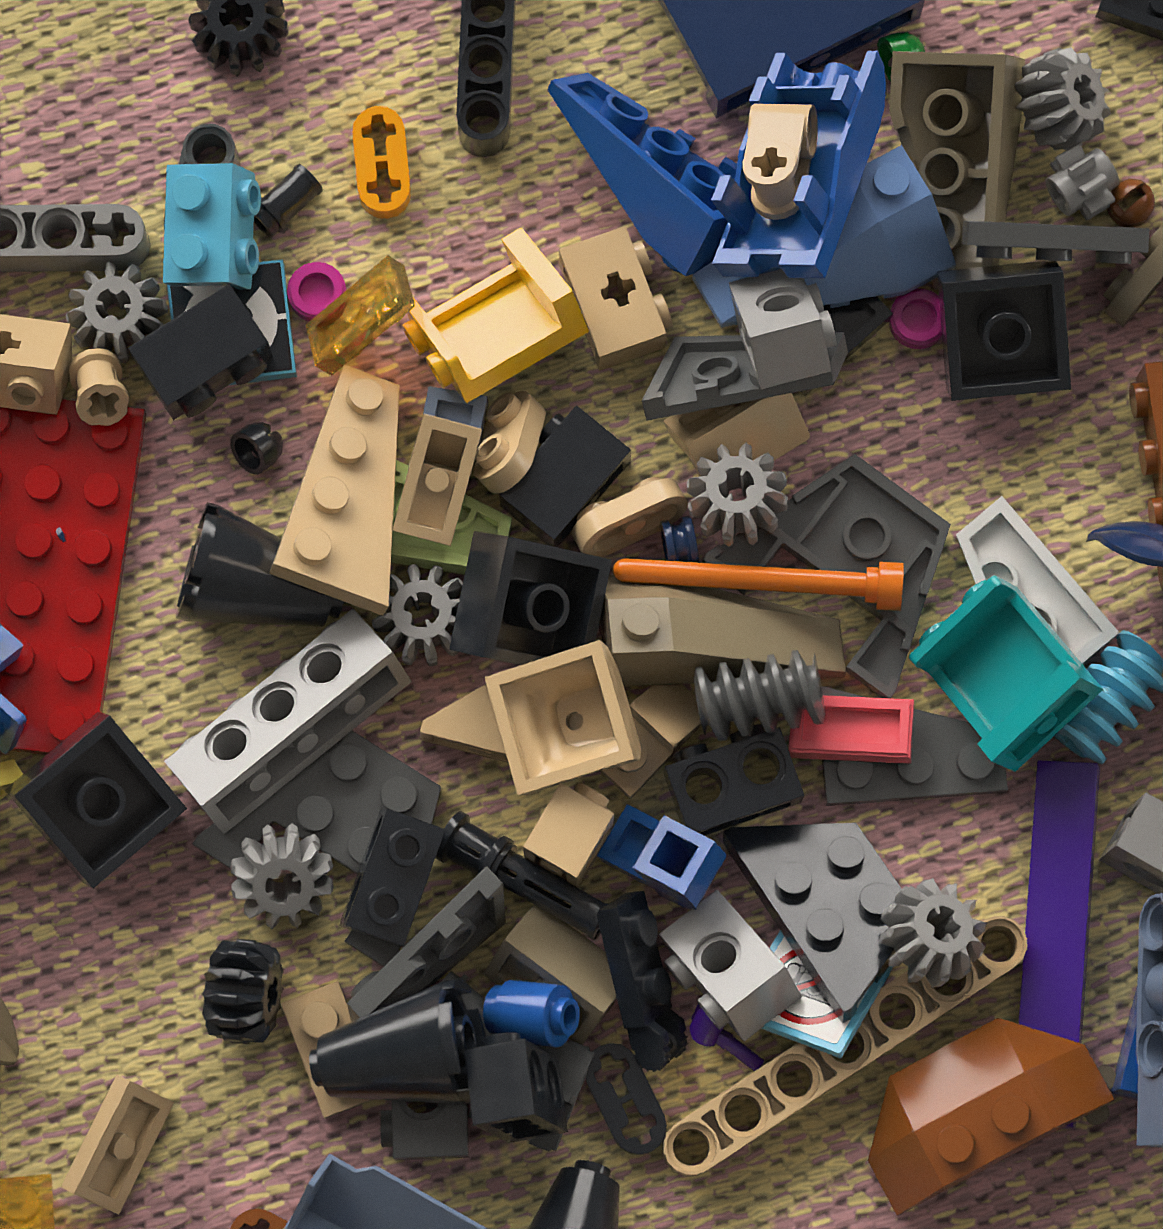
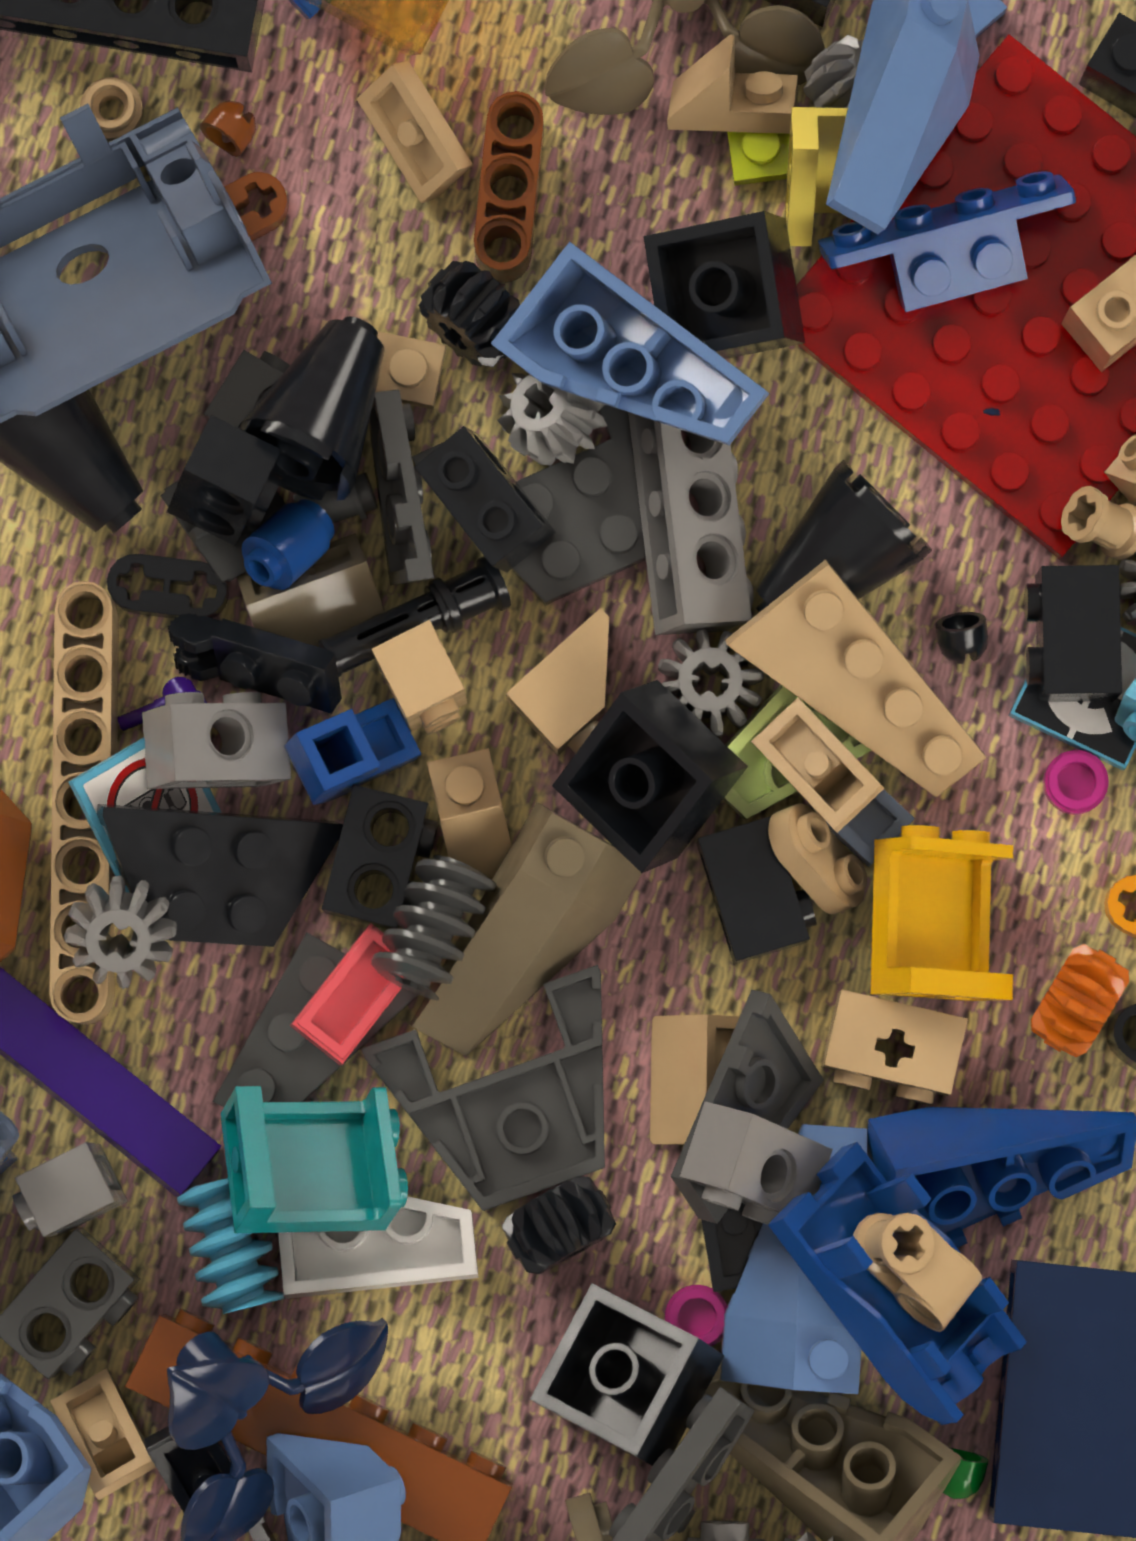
camera: 125 degrees right, 5 degrees up
(86, 1035) = (509, 158): none -> dark orange beam
(204, 842) = (615, 347): none -> medium blue wedge
(360, 315) = (1021, 798): clear yellow plate -> none
(488, 178) = (1080, 1000): none -> orange gear
(563, 717) = (517, 730): tan brick -> none
(629, 518) = (676, 949): tan plate -> none
(679, 541) = (625, 954): dark blue bush -> none
(716, 504) = (649, 1017): light grey gear -> none
(878, 585) = (466, 1101): orange piece -> none
(923, 457) = (558, 1225): none -> black gear

